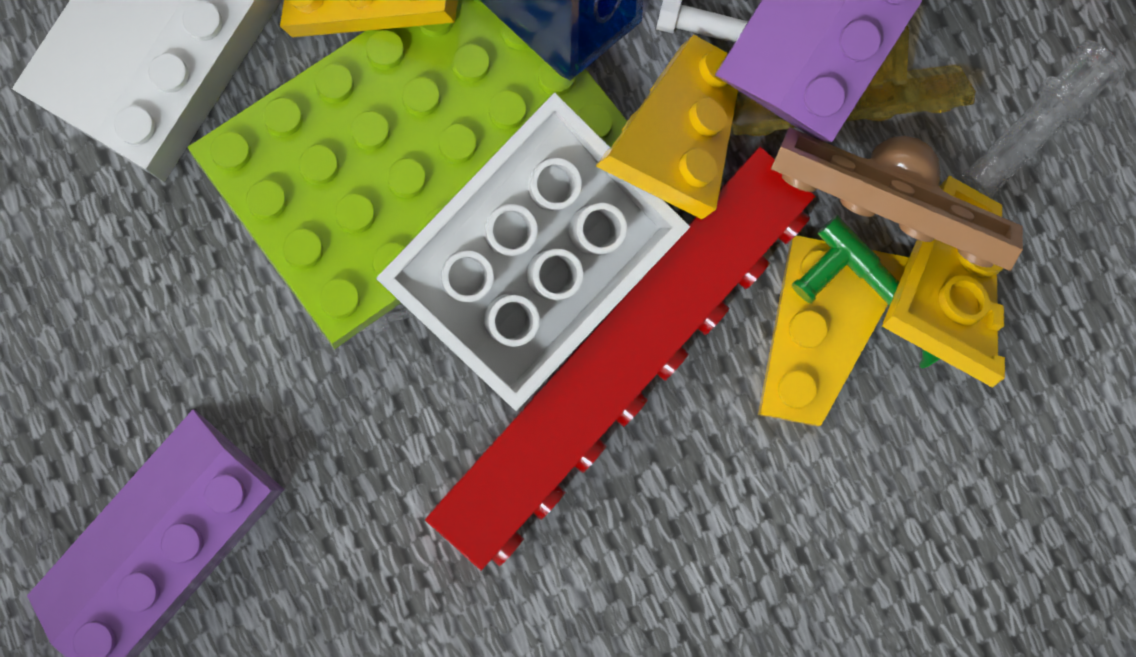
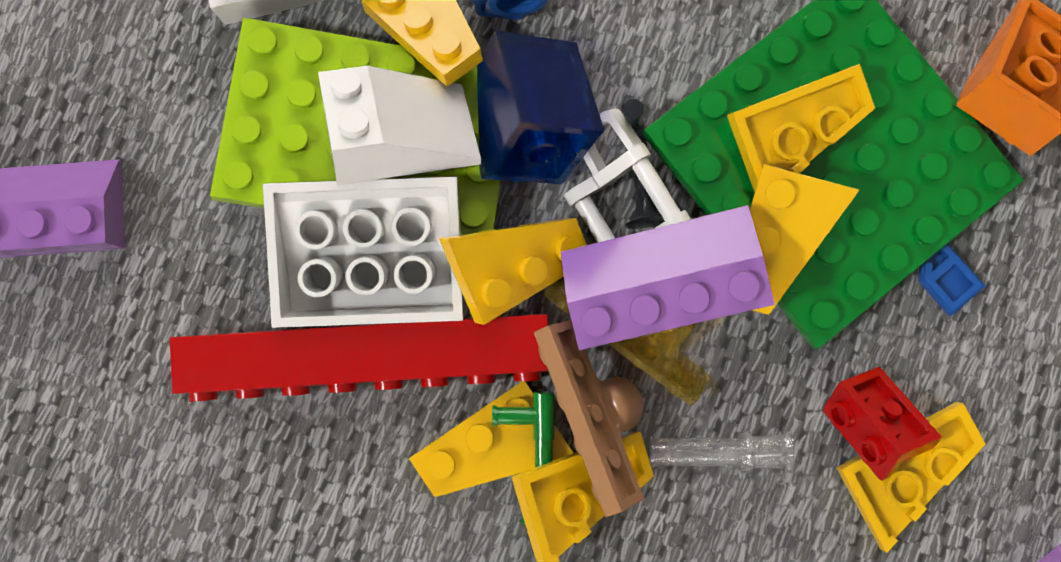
camera: 45 degrees right, 0 degrees up
(442, 104) = (394, 124): none -> white slope

